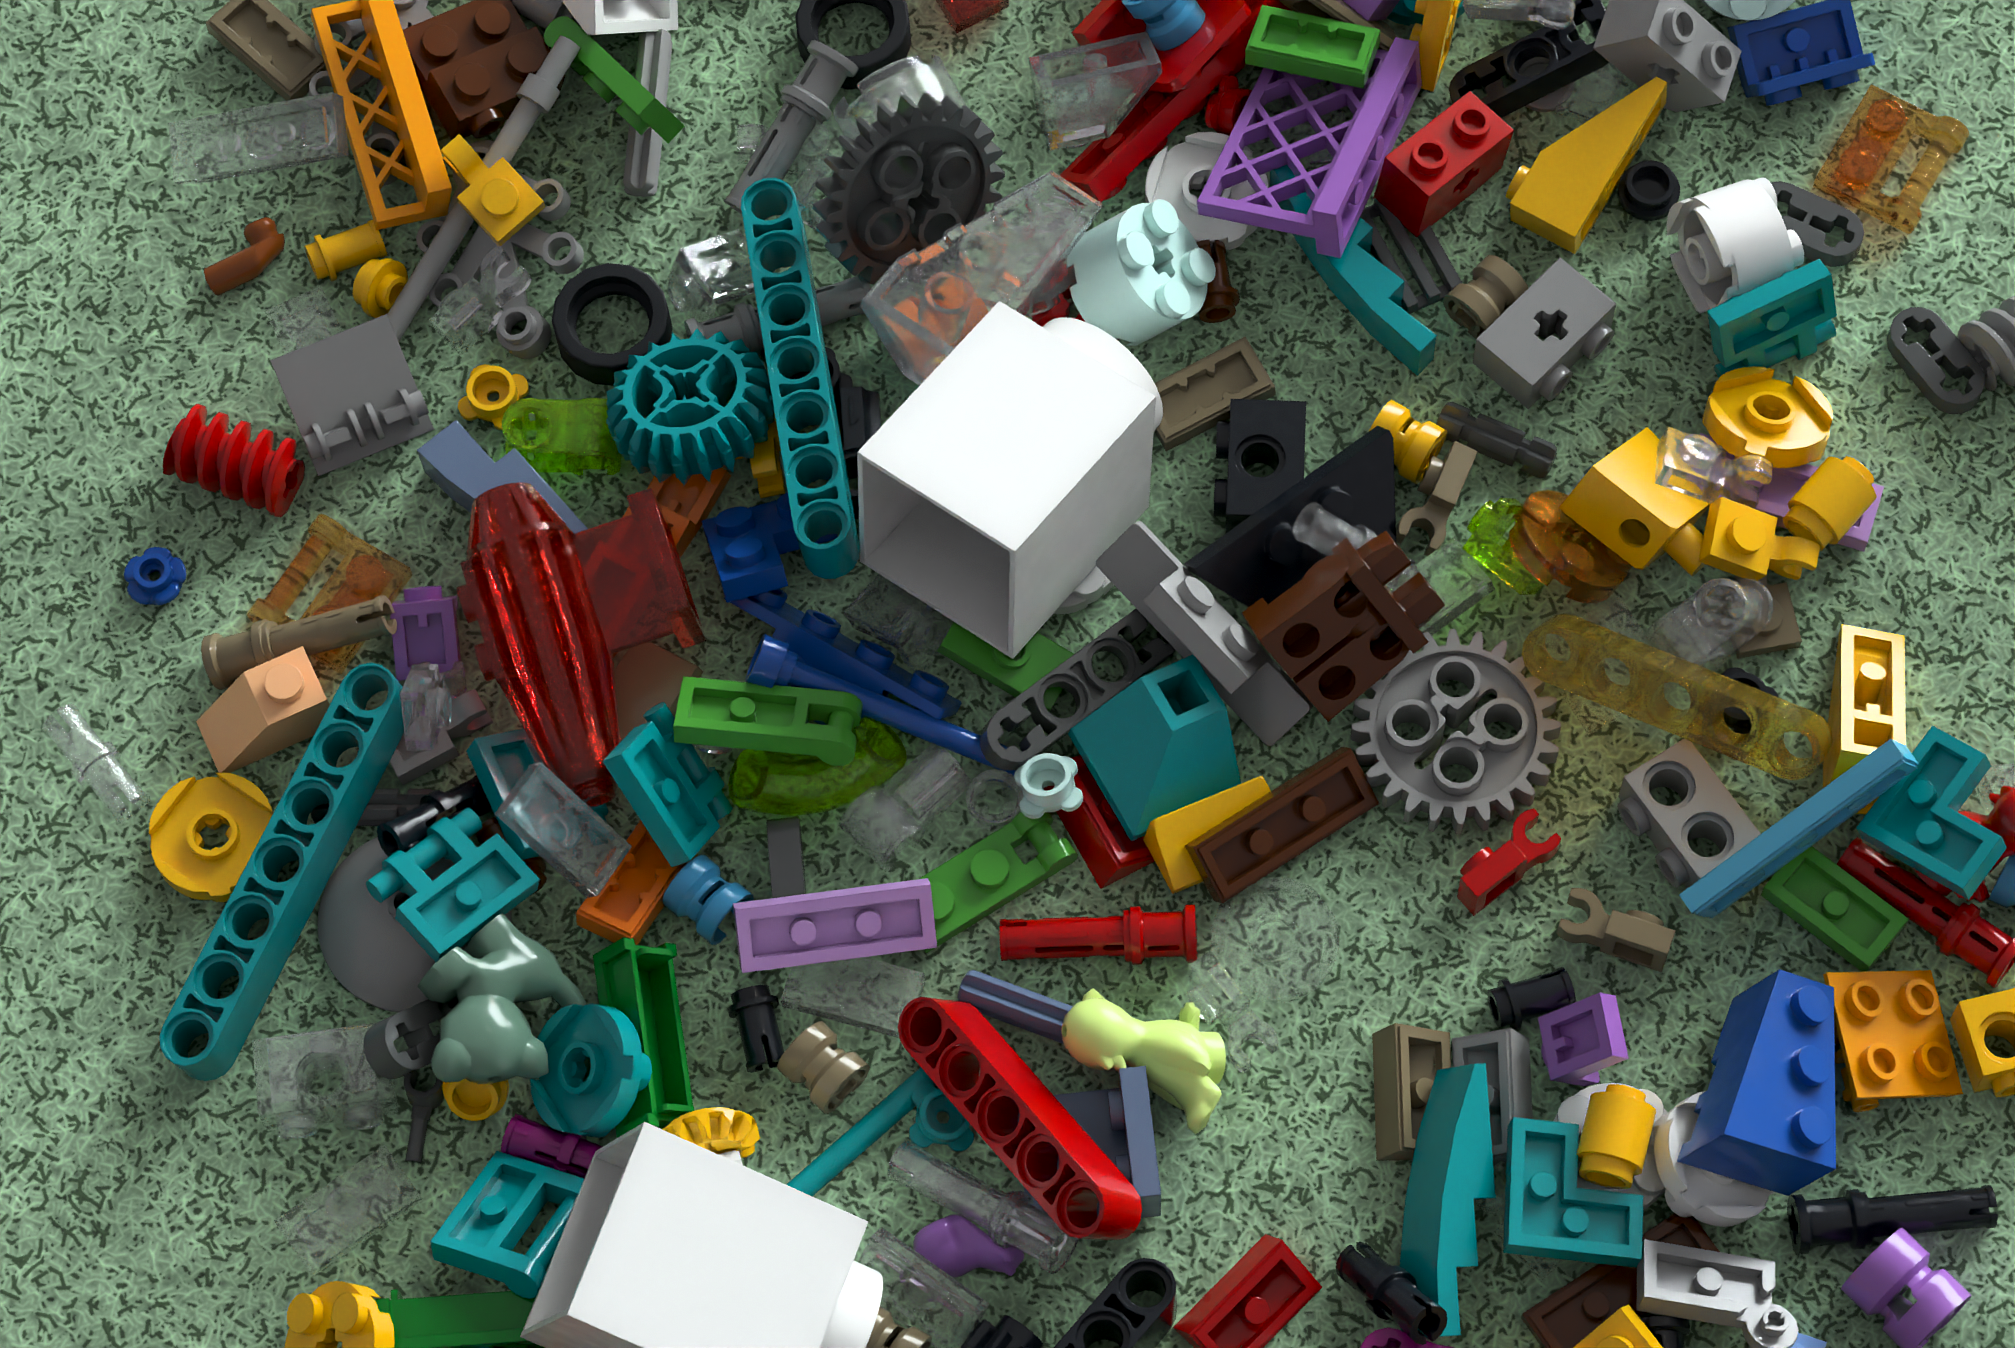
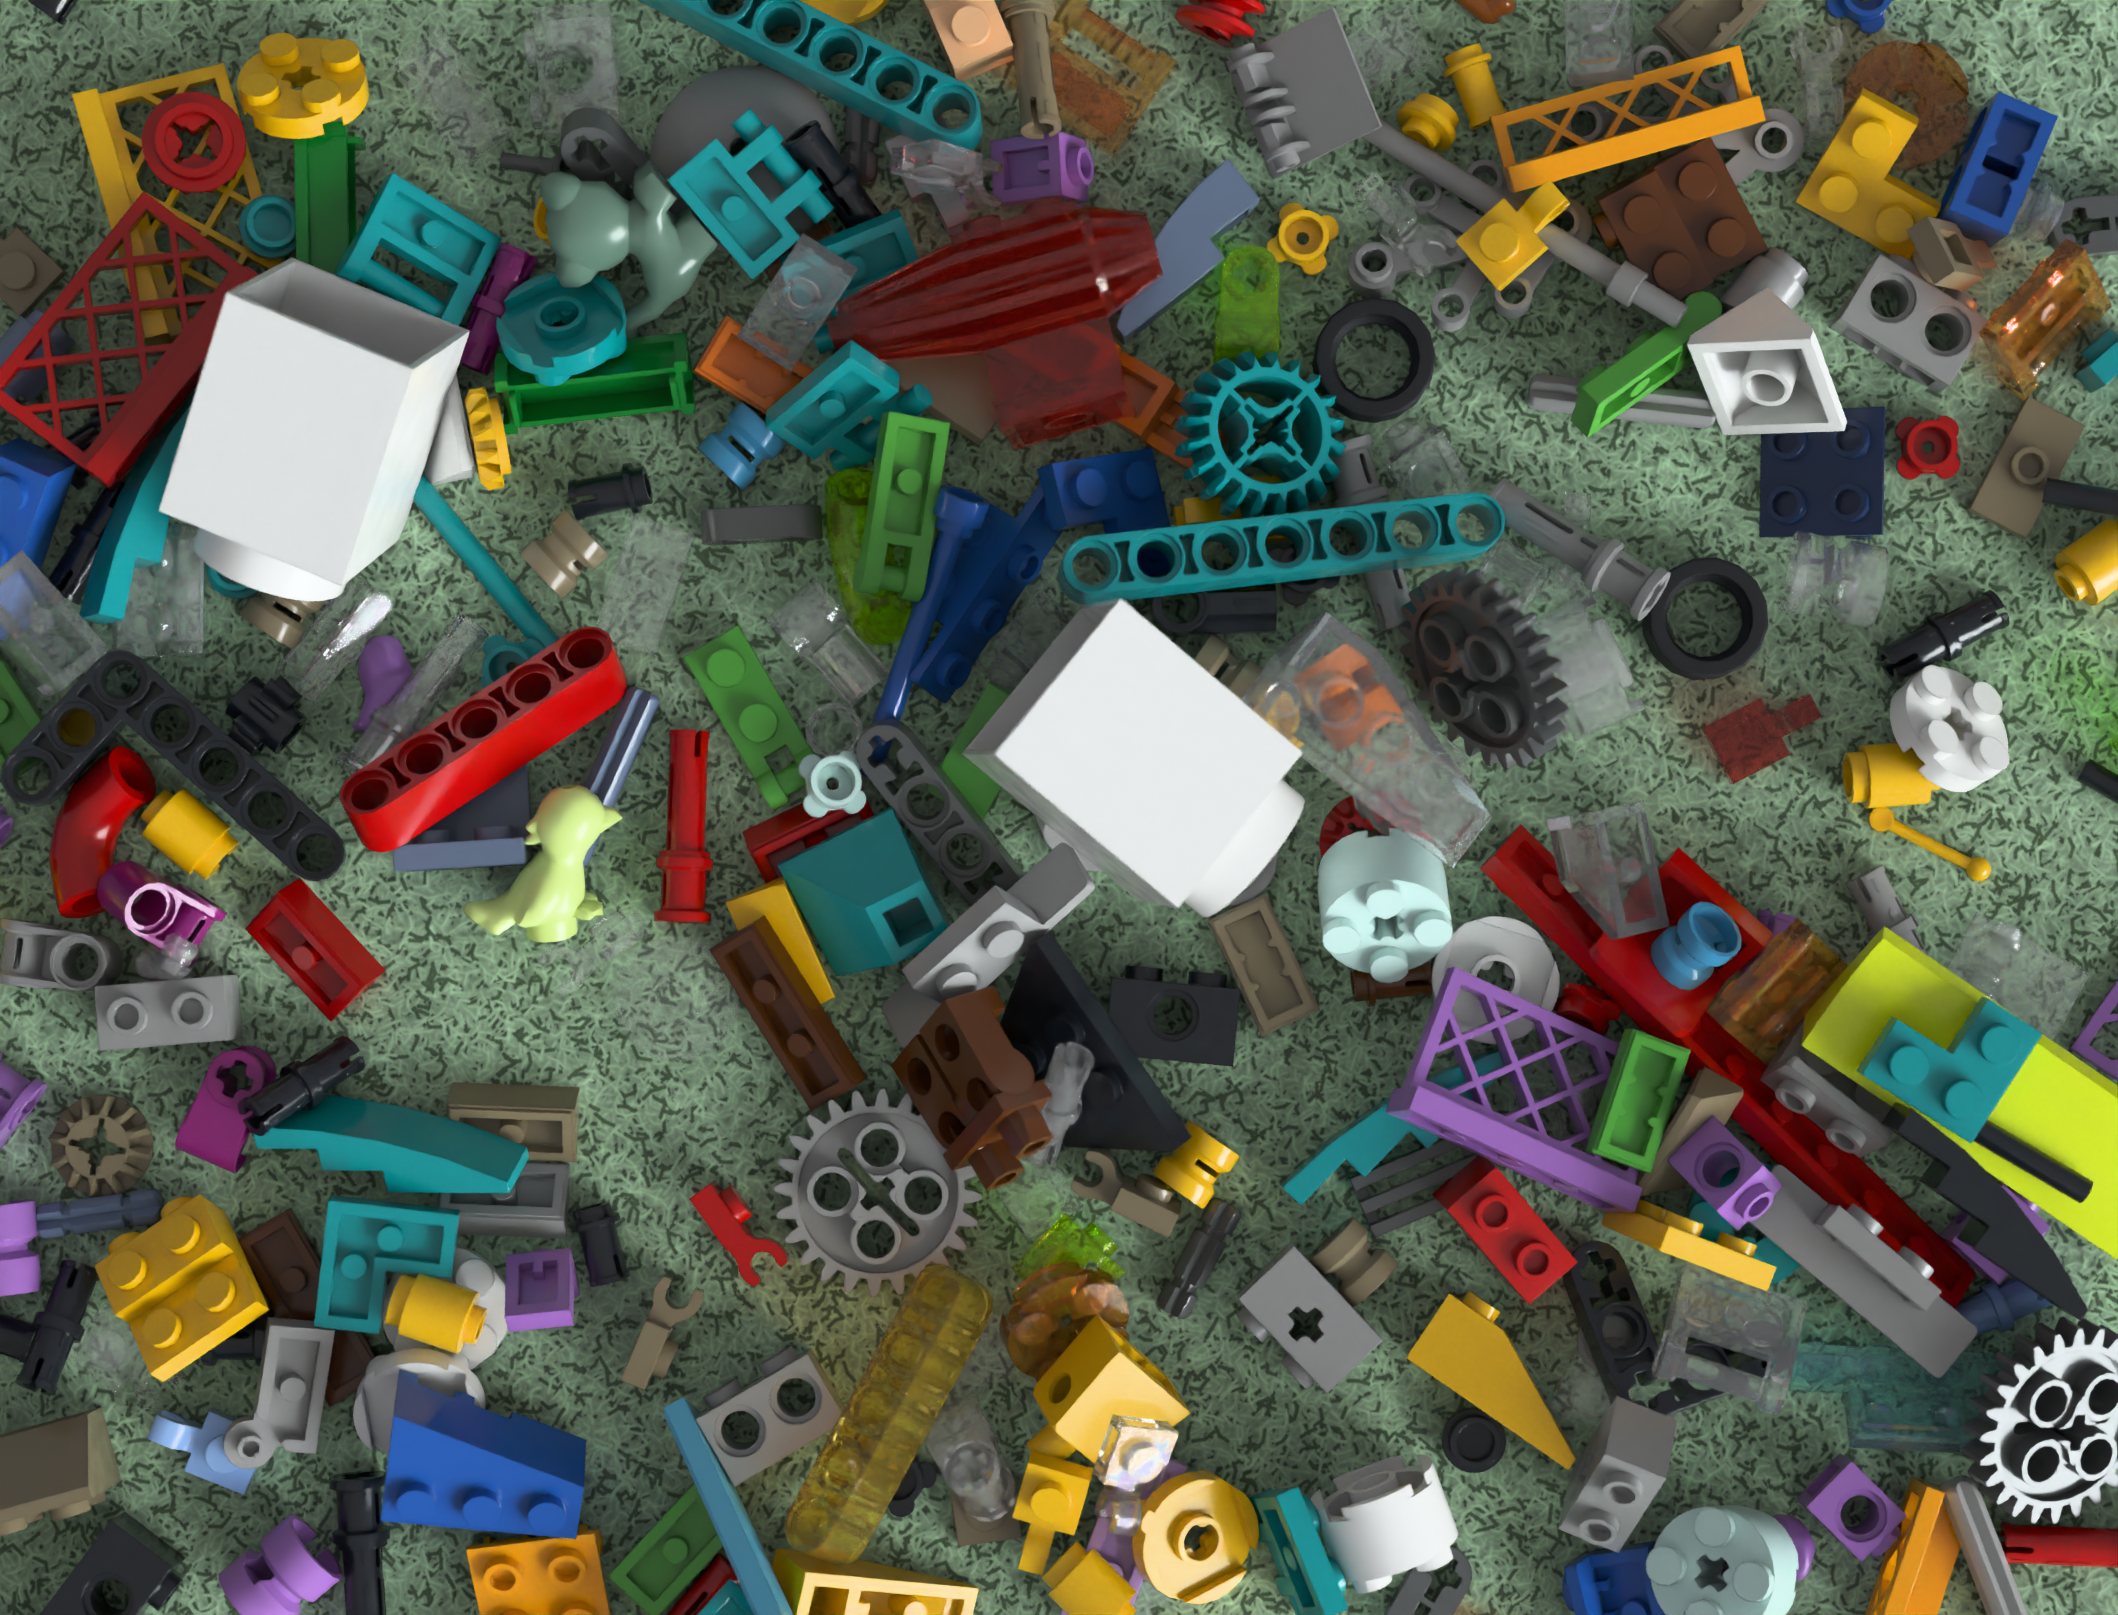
camera: 90 degrees right, 20 degrees up
(835, 925) = (693, 567): lavender plate -> none

